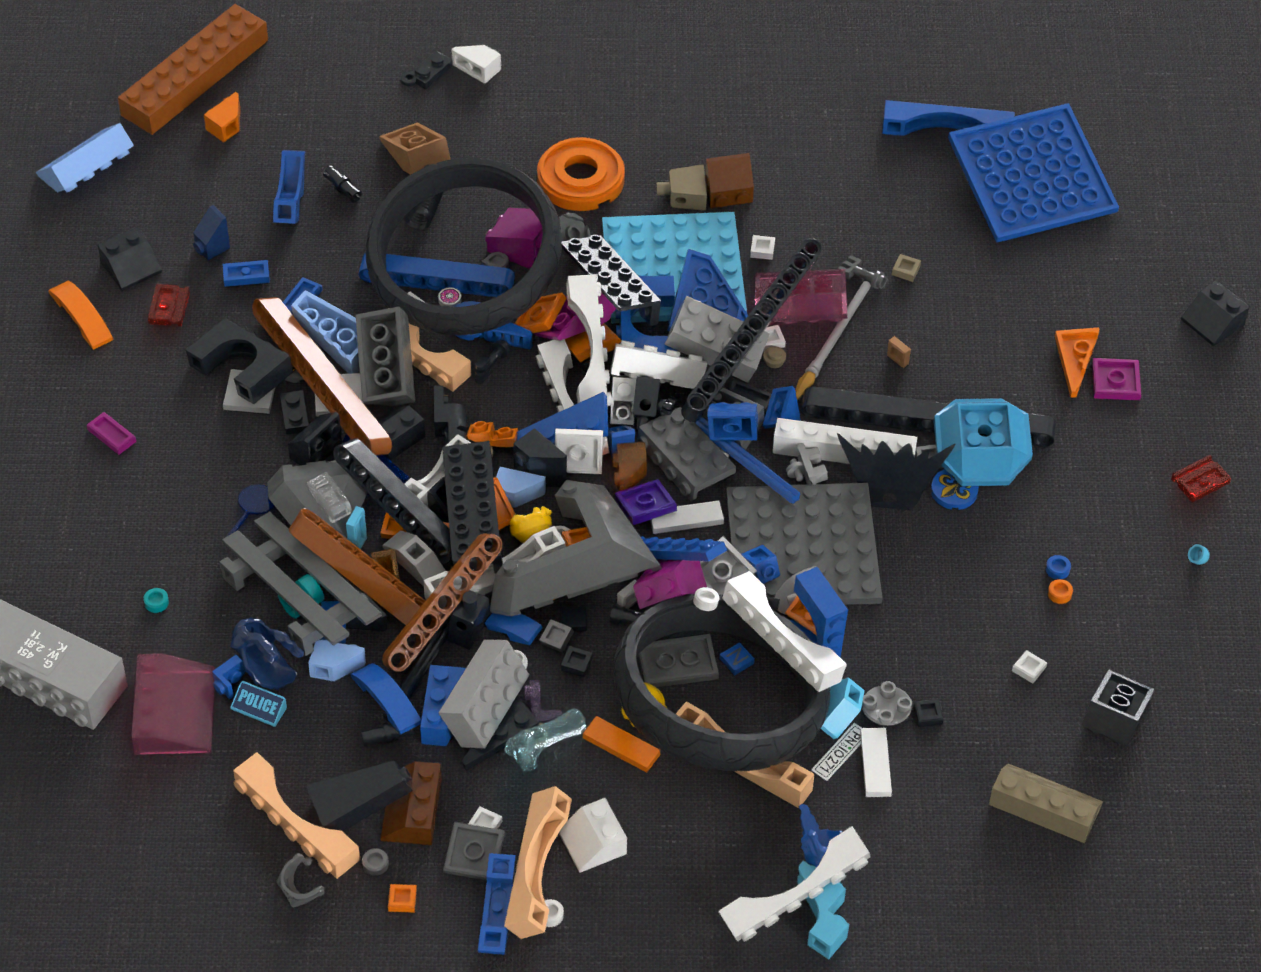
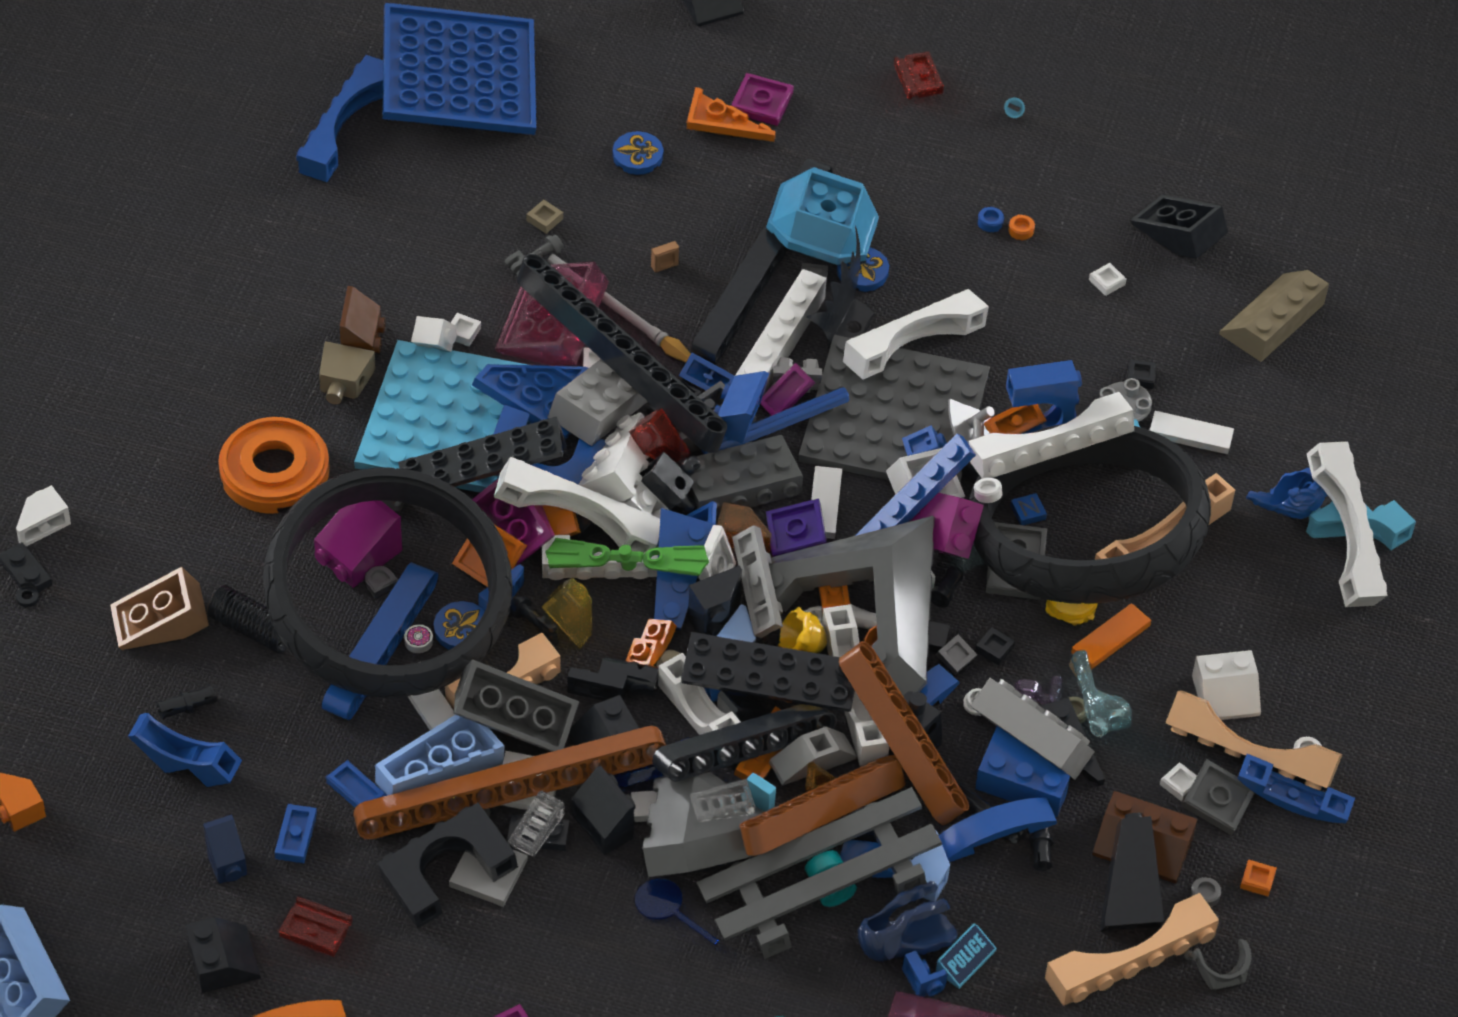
camera: 75 degrees left, 0 degrees up
(301, 407) = (548, 809): none -> clear slope
(499, 374) = (571, 610): none -> clear yellow slope
(544, 485) = (757, 581): none -> light grey hinge
(557, 414) = (675, 559): none -> bright green piece
(682, 377) = (658, 435): none -> clear red slope
(742, 226) = (434, 333): none -> white brick
(784, 459) = (787, 390): none -> magenta tile
(848, 503) = (954, 315): none -> white arch
(1009, 311) = (637, 152): none -> blue tile

